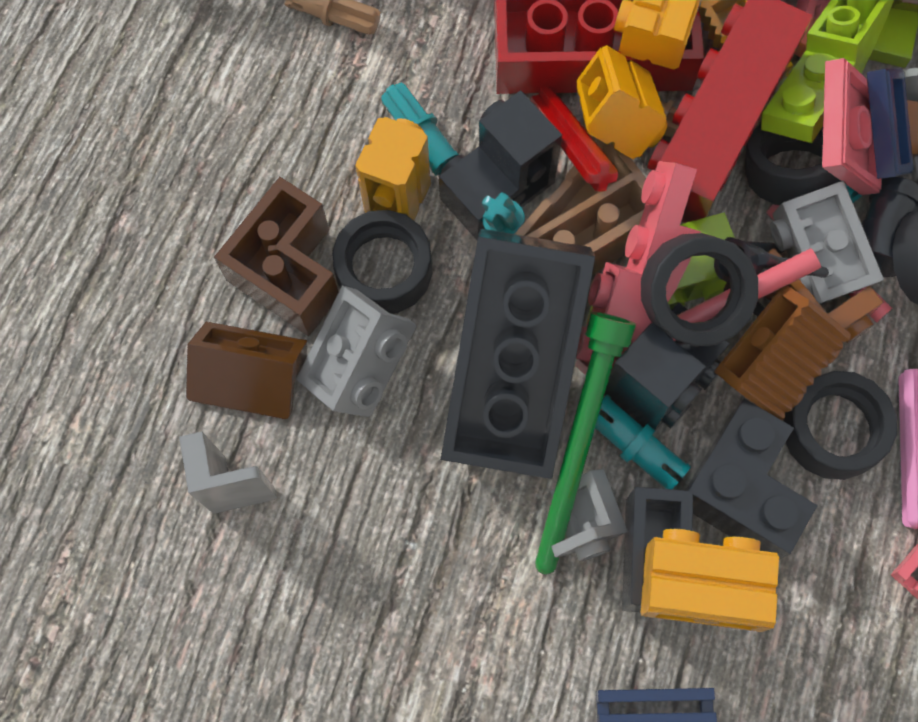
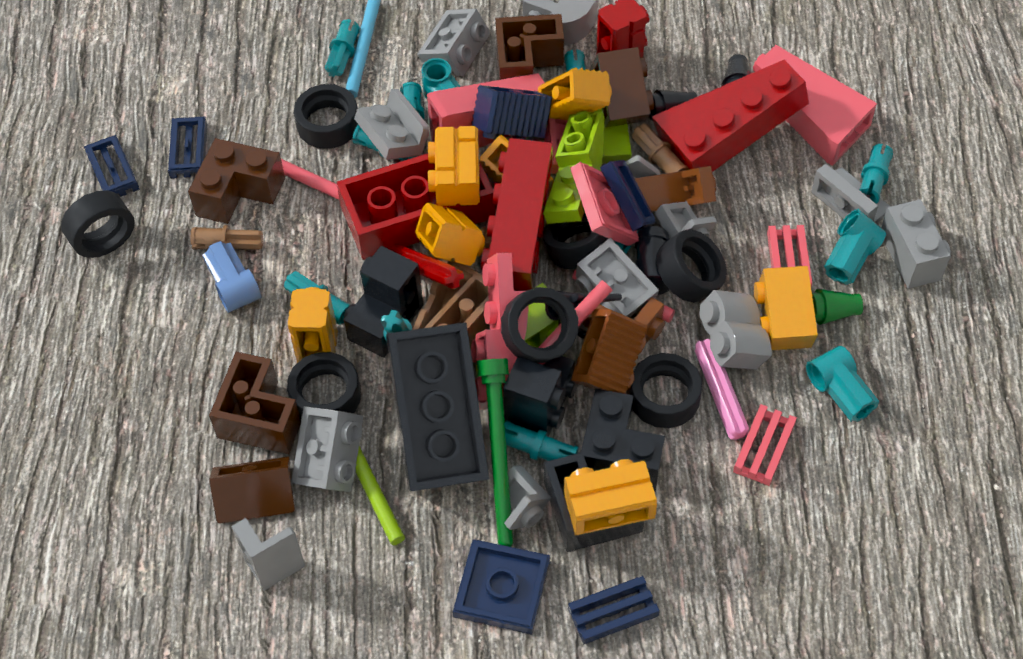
camera: 20 degrees left, 15 degrees down
(319, 71) = (233, 283): none -> medium blue piece
(399, 442) = (378, 500): none -> lime bar
(519, 627) = (502, 586): none -> dark blue tile

